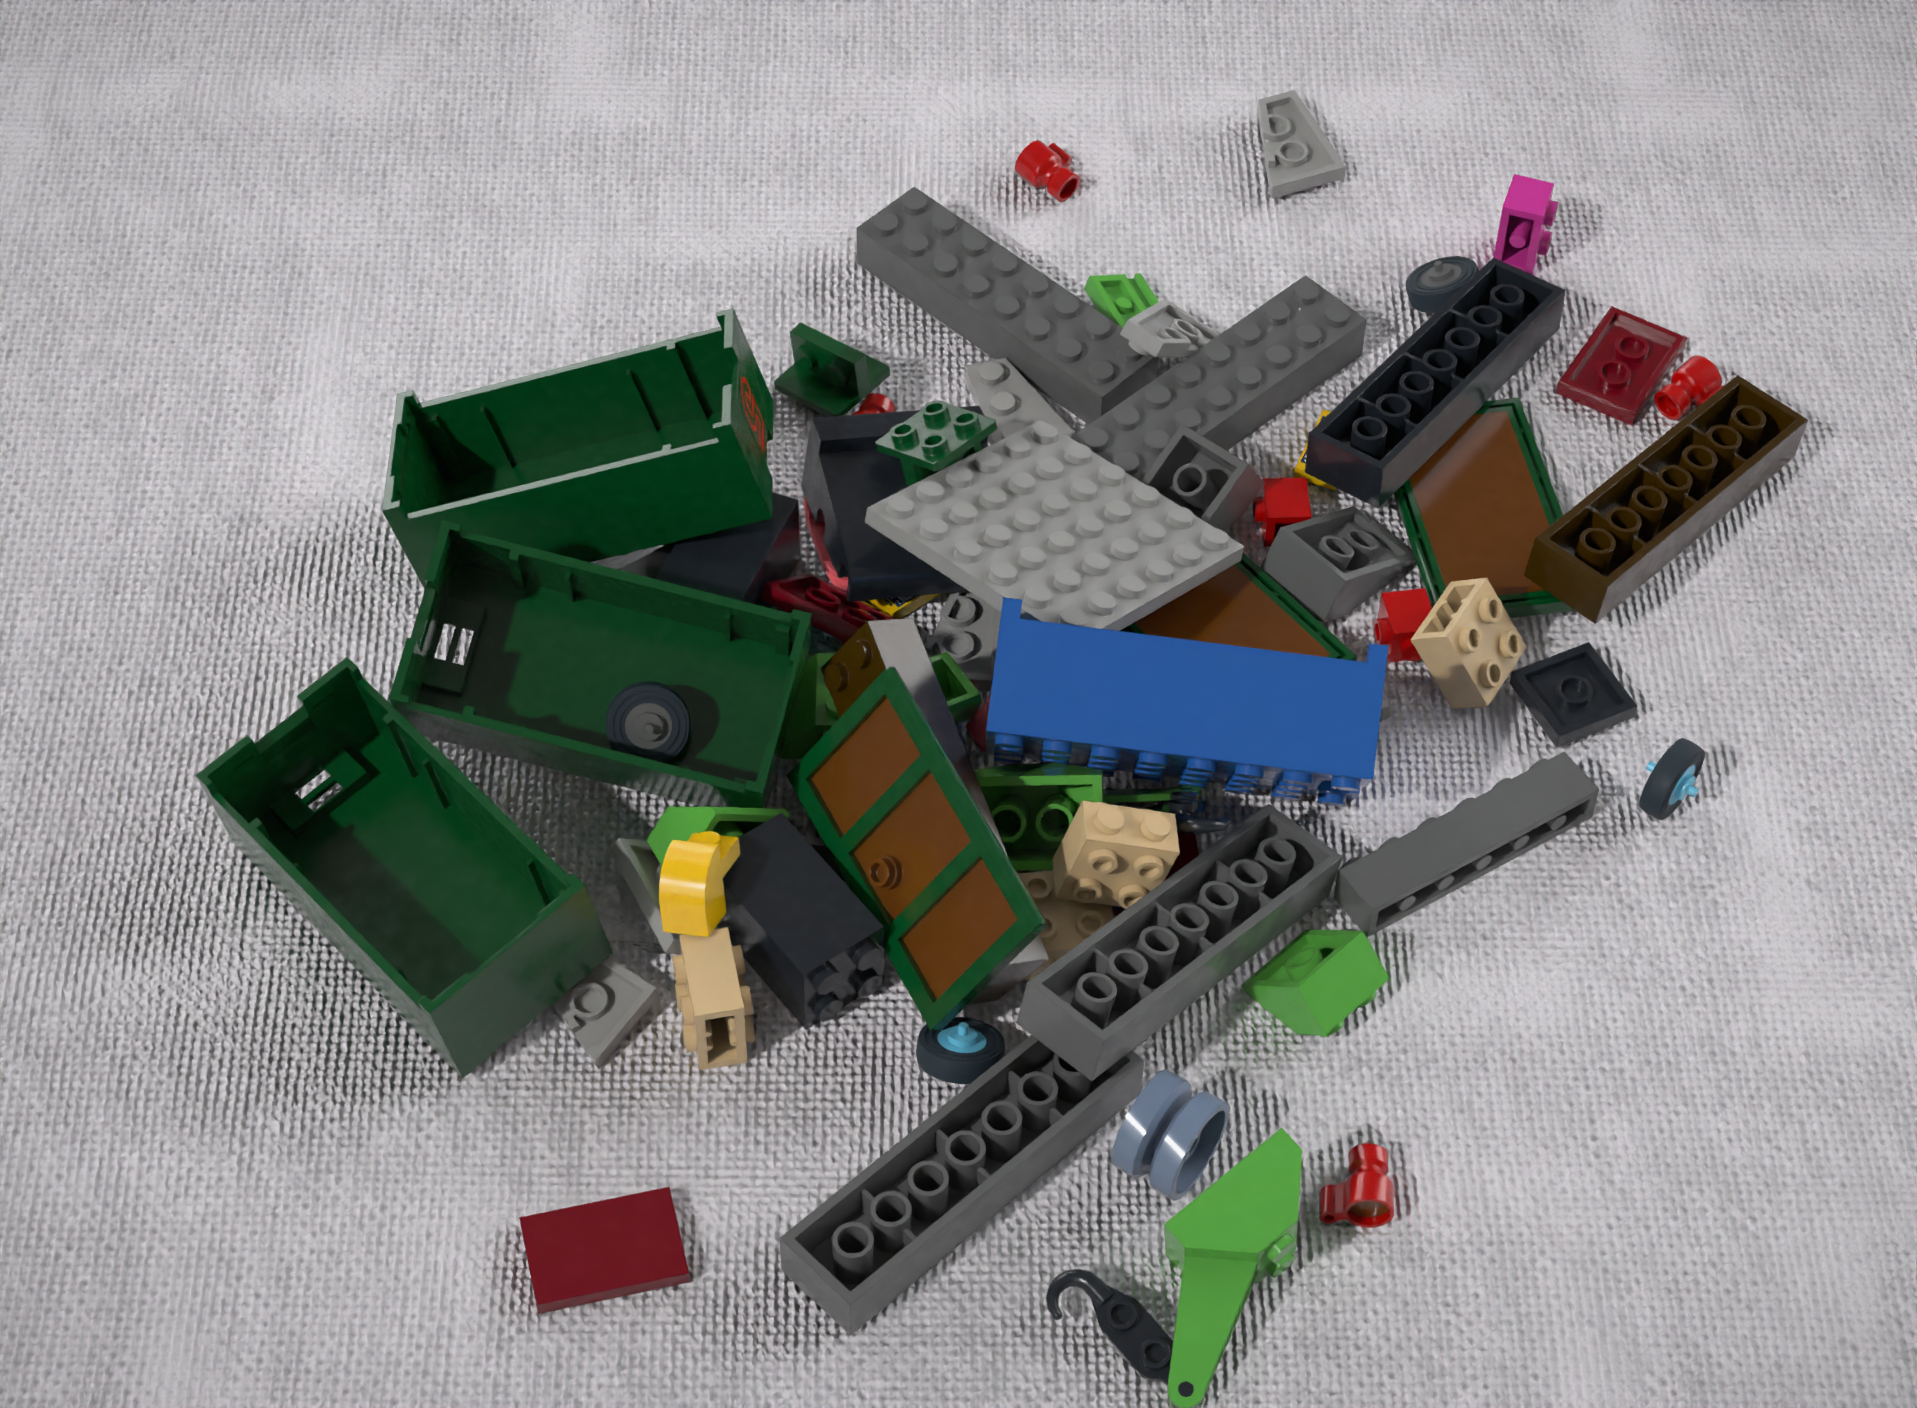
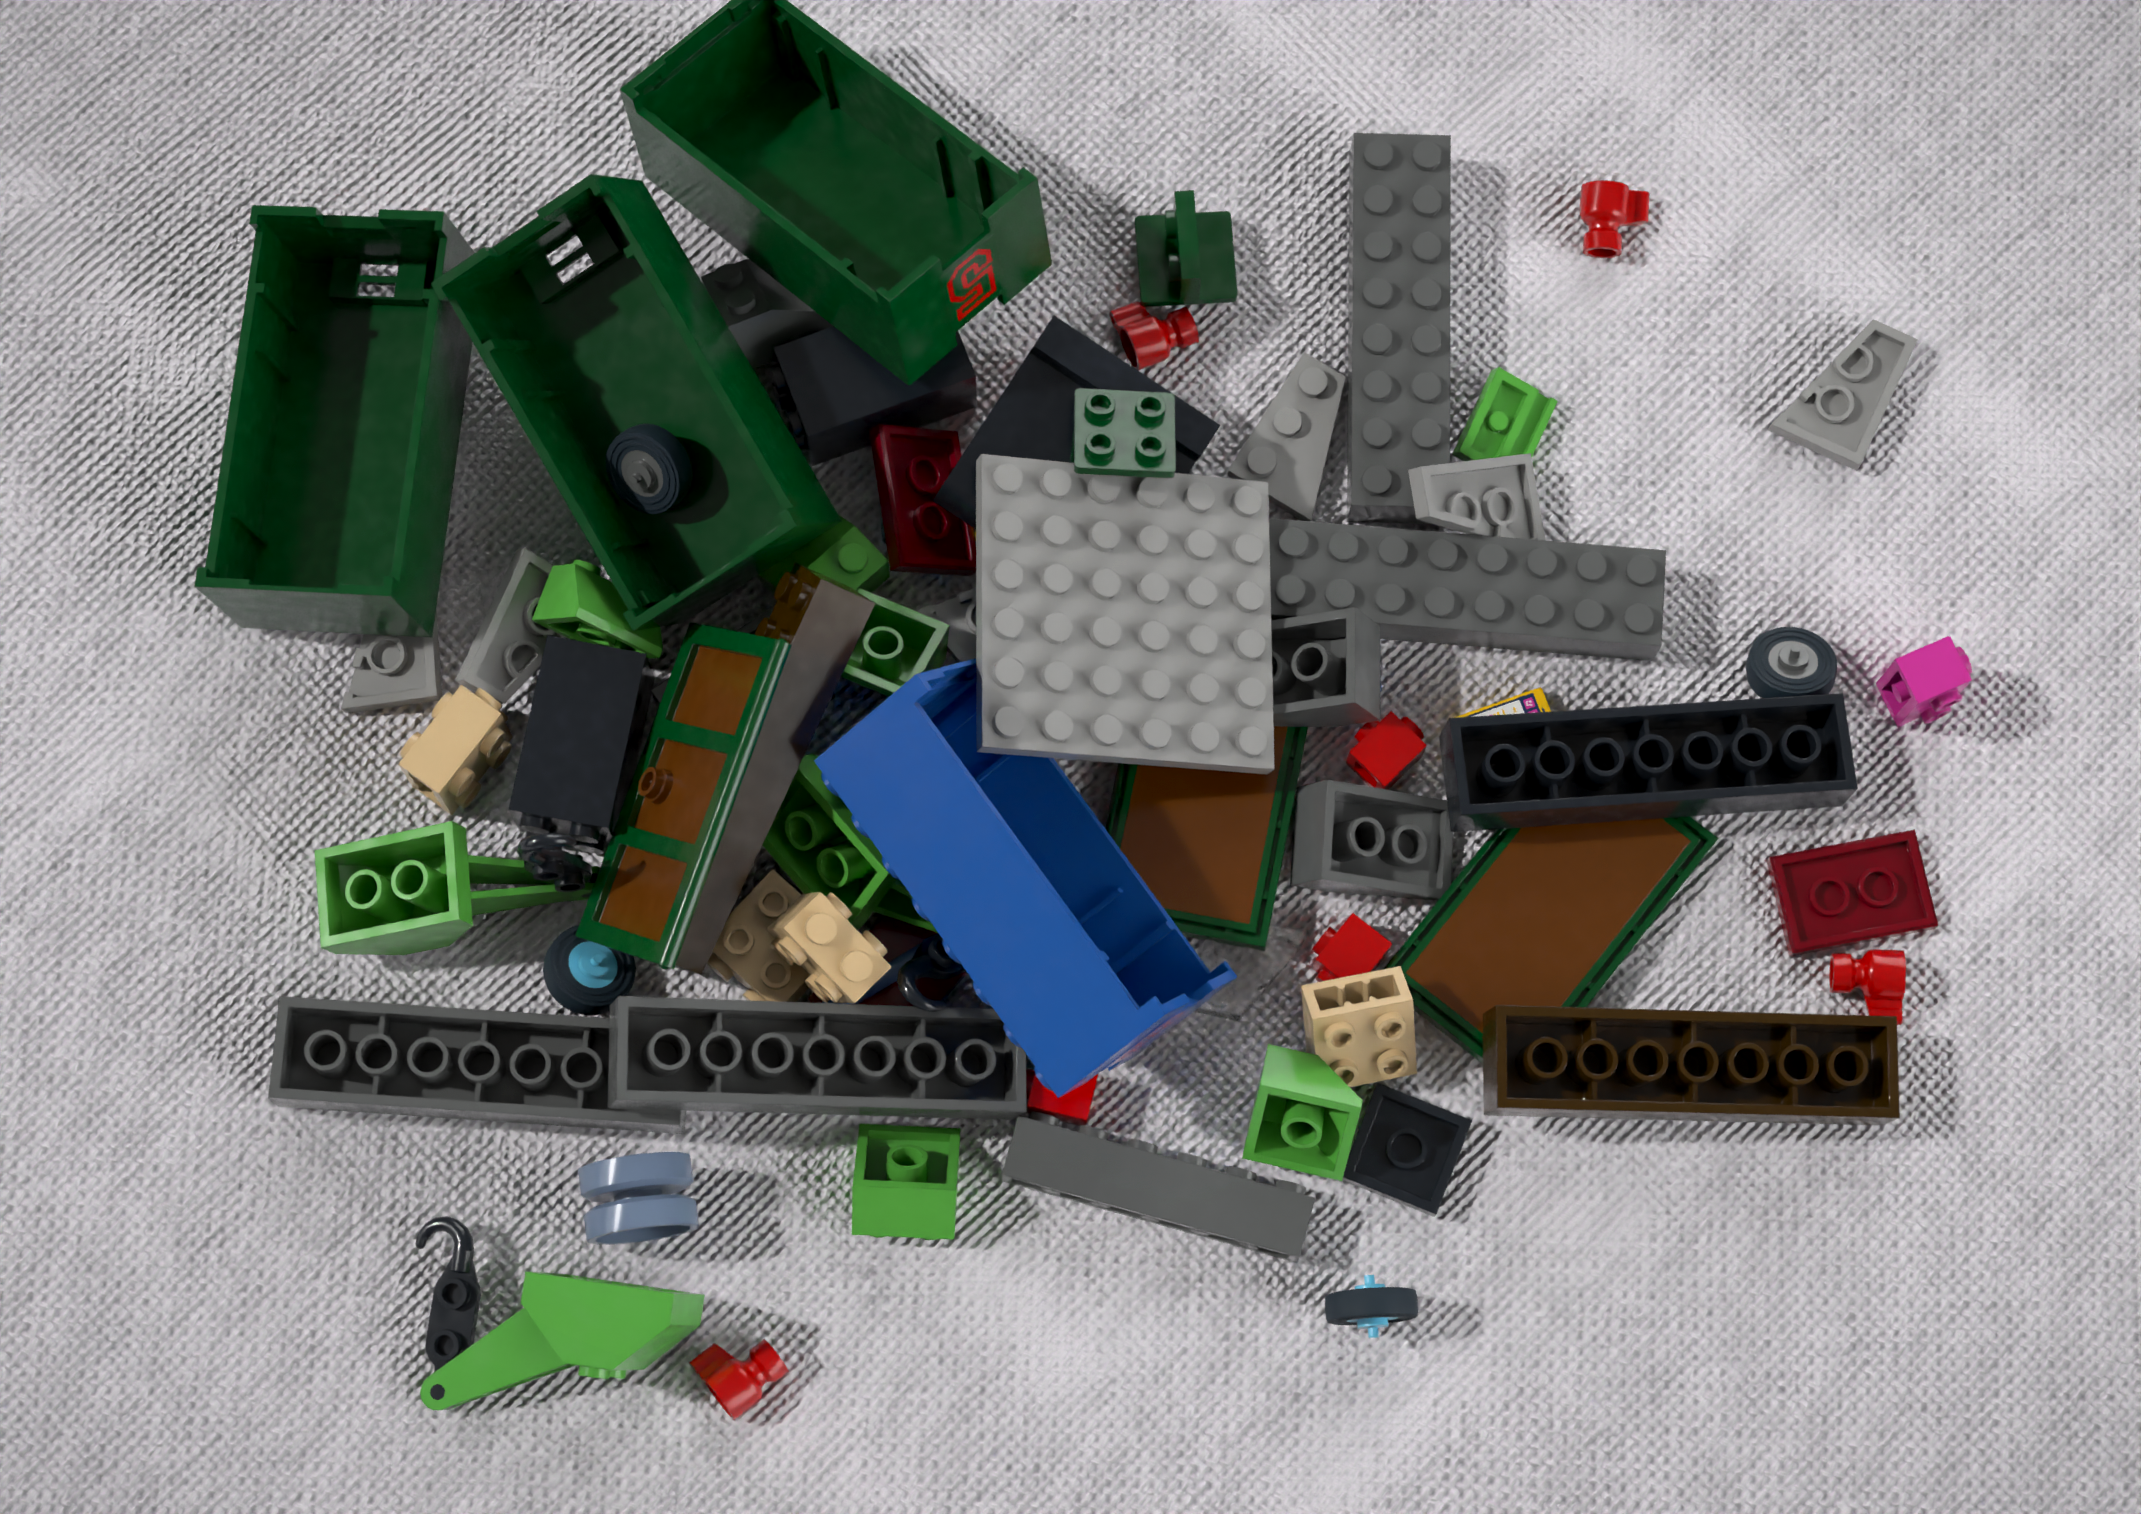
camera: 45 degrees right, 25 degrees up
(604, 1250) = (192, 866): dark red tile -> none
(693, 883) = (506, 650): yellow brick -> none
(800, 1084) = (414, 887): none -> bright green slope
(1347, 834) = (1069, 1108): none -> red brick
(1499, 712) = (1301, 1115): none -> bright green slope

